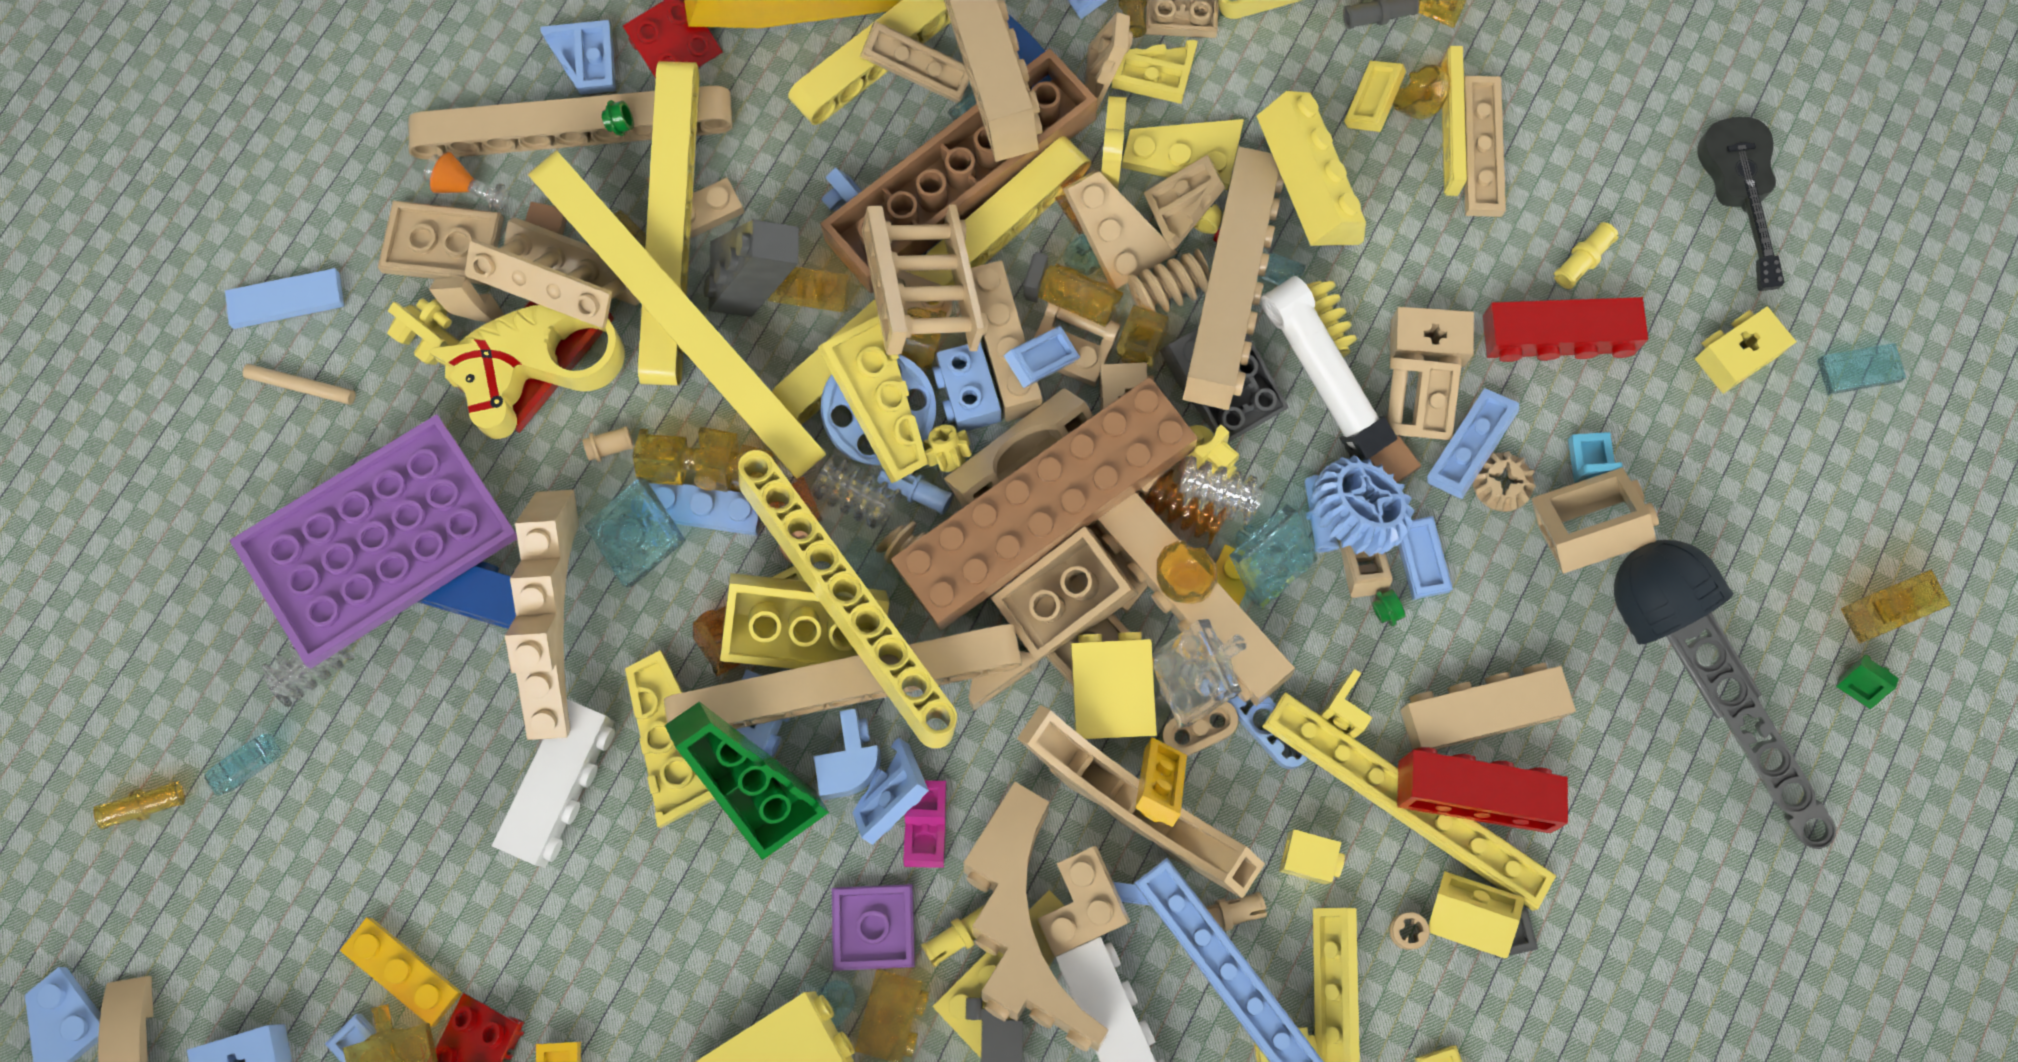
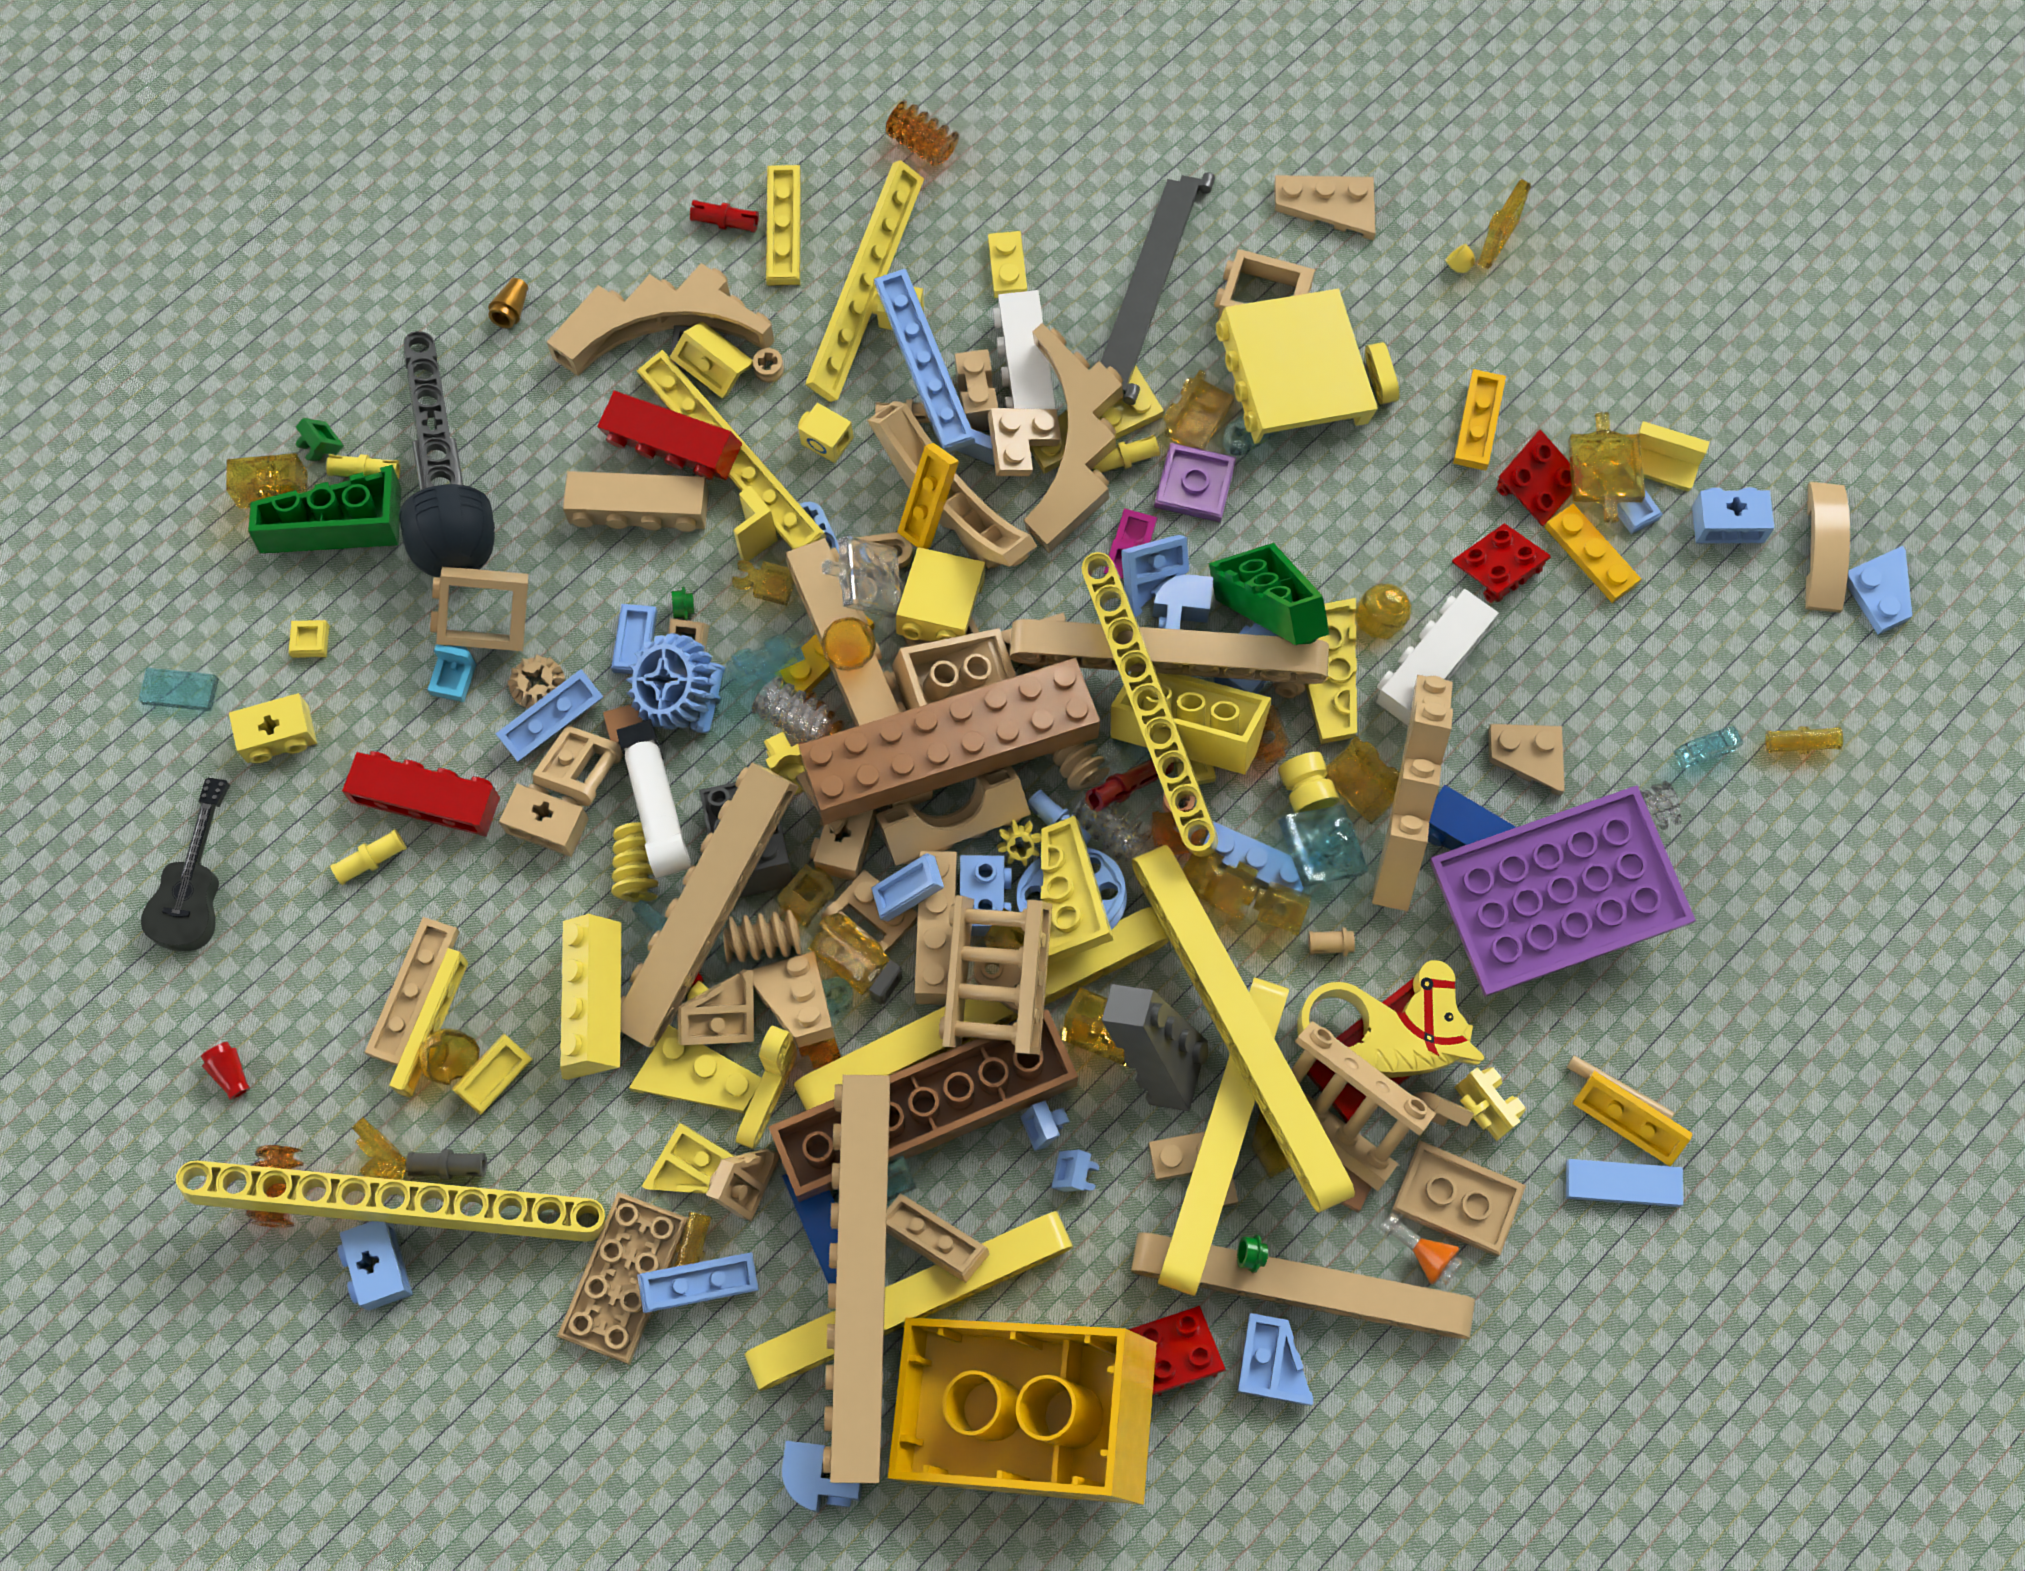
camera: 165 degrees left, 5 degrees down
(281, 354) = (1632, 1118): none -> yellow plate
(437, 707) = (1530, 752): none -> tan wing
(502, 926) = (1502, 561): none -> red hinge
(610, 622) = (1364, 779): none -> clear yellow bracket
(625, 827) = (1383, 610): none -> clear yellow hair
(666, 598) = (1307, 781): none -> light yellow wheel
(806, 159) = (1072, 1171): none -> light blue tile
(856, 517) = (1121, 786): none -> dark red pin
(1167, 976) = (975, 371): none -> tan brick
(1308, 659) = (769, 583): none -> clear yellow plate
(1618, 925) = (654, 306): none -> tan arch
(1619, 31) = (226, 1069): none -> red cone
(1740, 918) = (508, 304): none -> pearl gold cone
(1759, 459) = (308, 638): none -> light yellow tile
(1794, 595) = (330, 516): none -> green wedge
(1801, 662) = (349, 466): none -> light yellow pin

